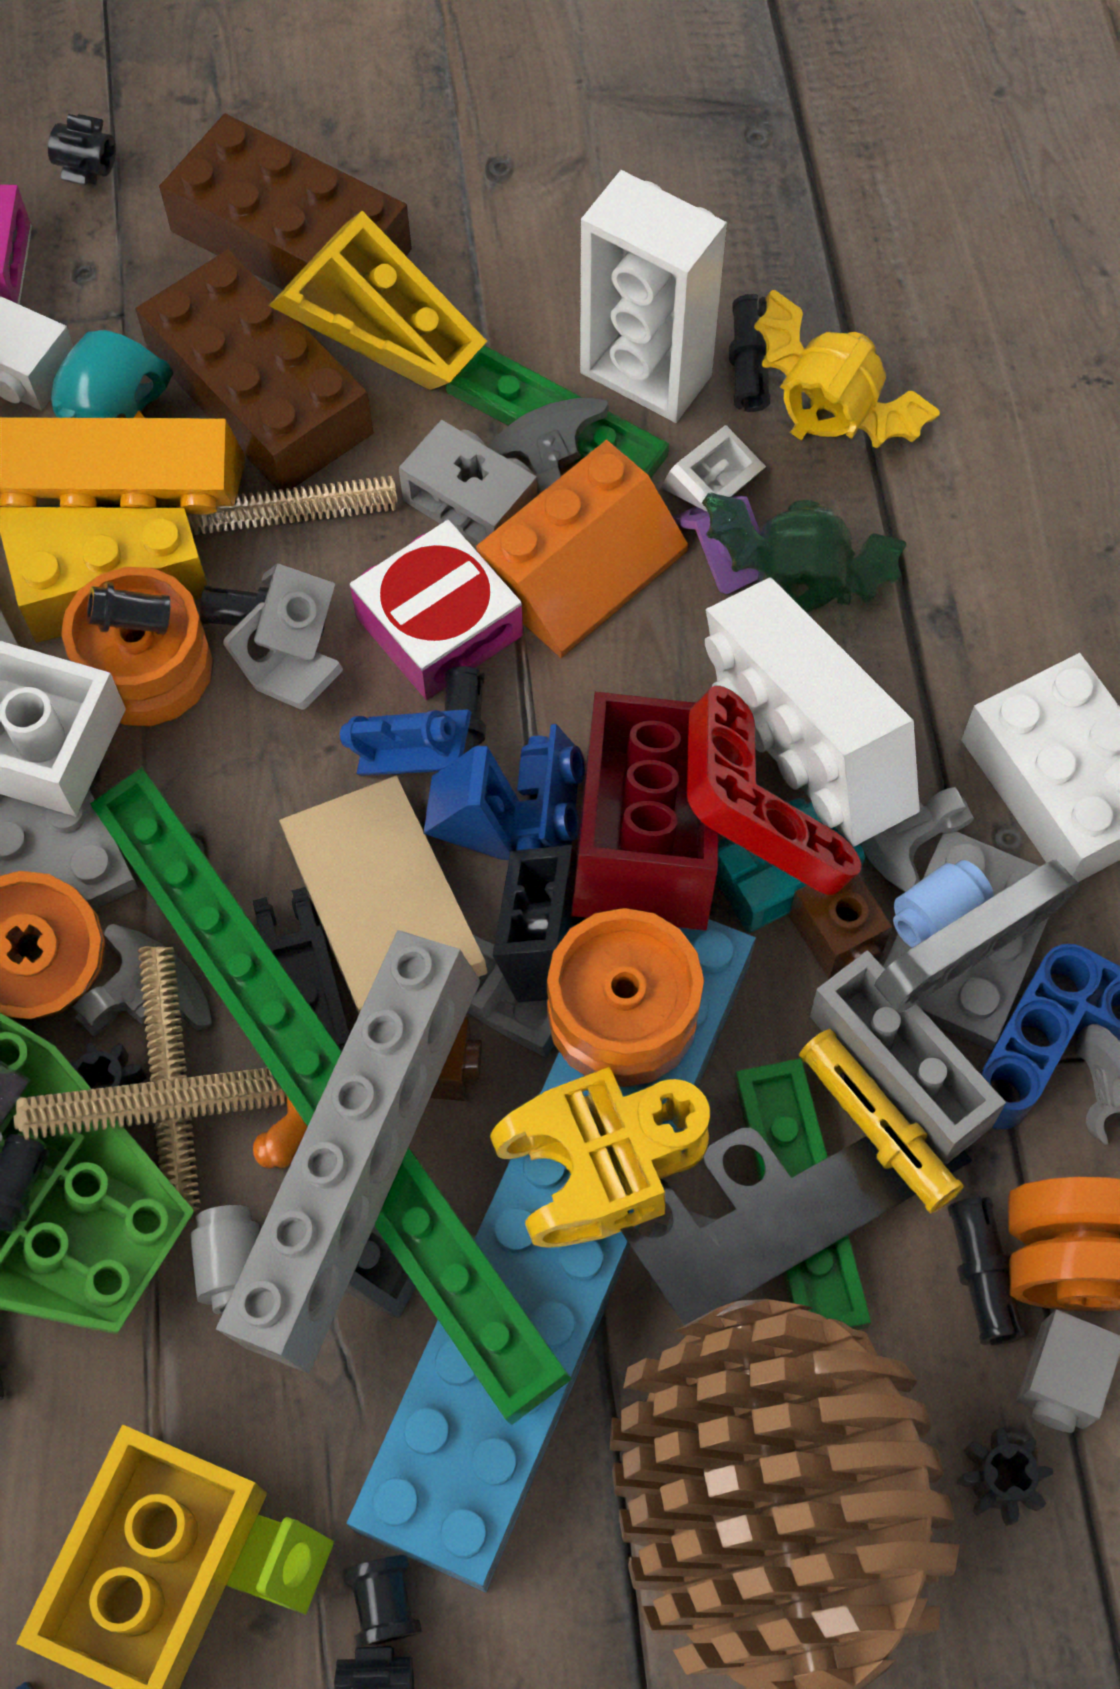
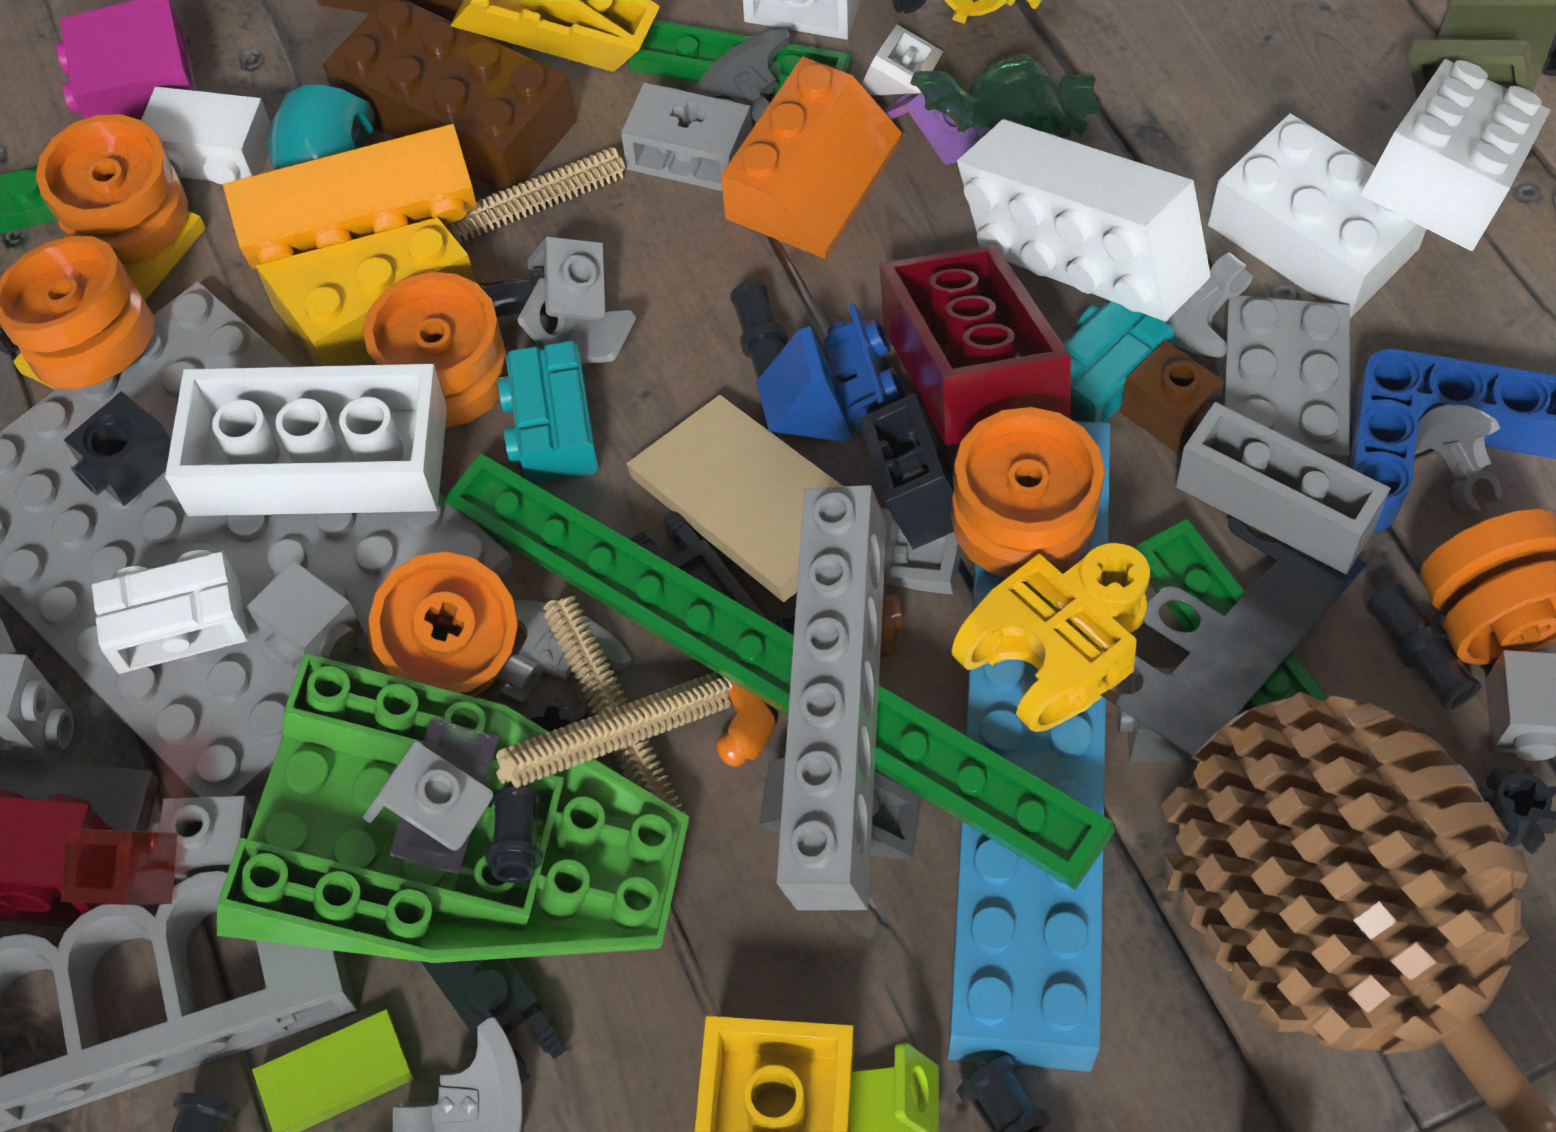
camera: 15 degrees left, 5 degrees down
(127, 609) = (419, 310): black pin -> none
(220, 1252) = (734, 853): light grey brick -> none
(223, 744) = (549, 413): none -> teal brick
(406, 741) = (721, 359): blue hinge -> none
(437, 608) = (700, 243): piece -> none
(731, 803) = (1048, 300): red beam -> none
(932, 1181) = (1302, 557): yellow pin -> none
(940, 900) = (1261, 349): light blue brick -> none
(975, 936) = (1304, 361): beam -> none

